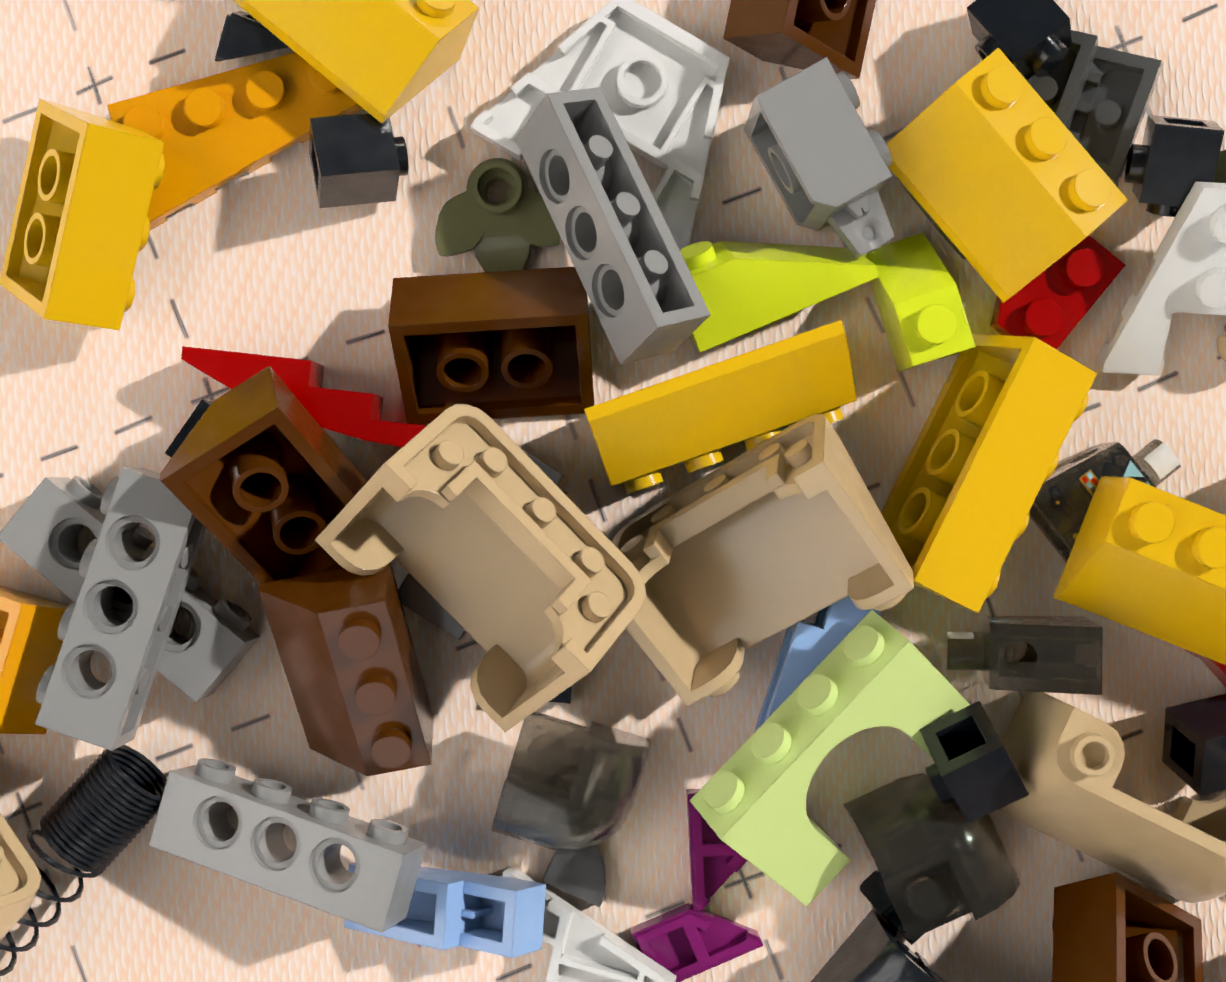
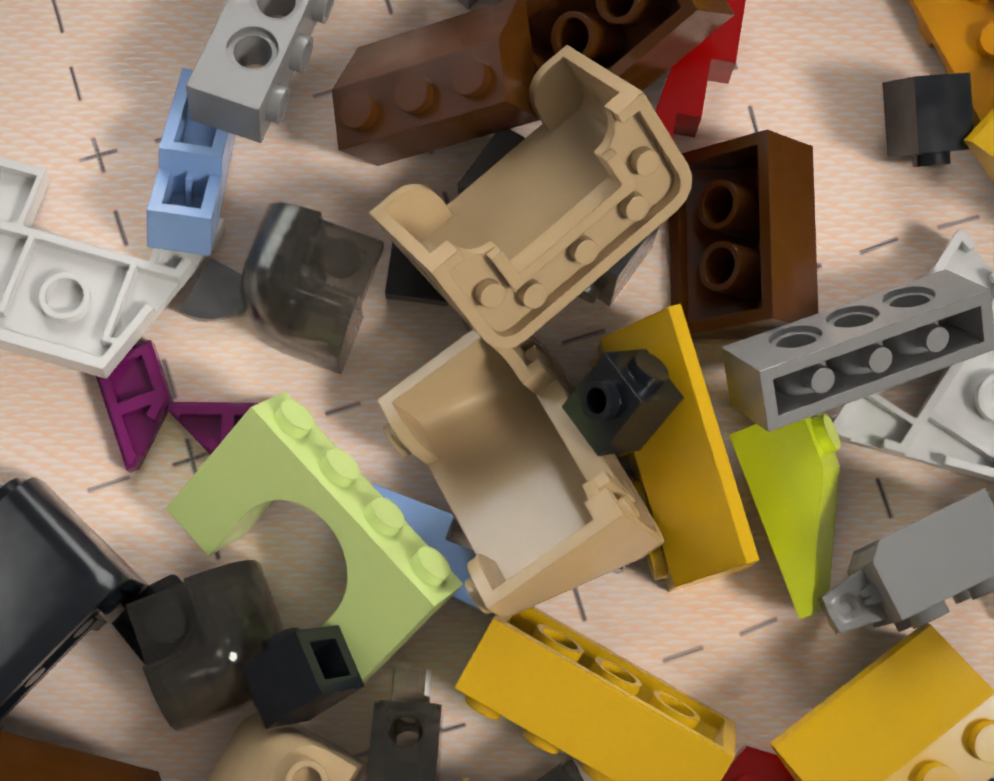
camera: 100 degrees right, 10 degrees down
(495, 230) = (855, 250): olive plate -> none
(684, 462) = (622, 401): none -> black brick
(918, 303) = (770, 662): neon yellow slope -> none

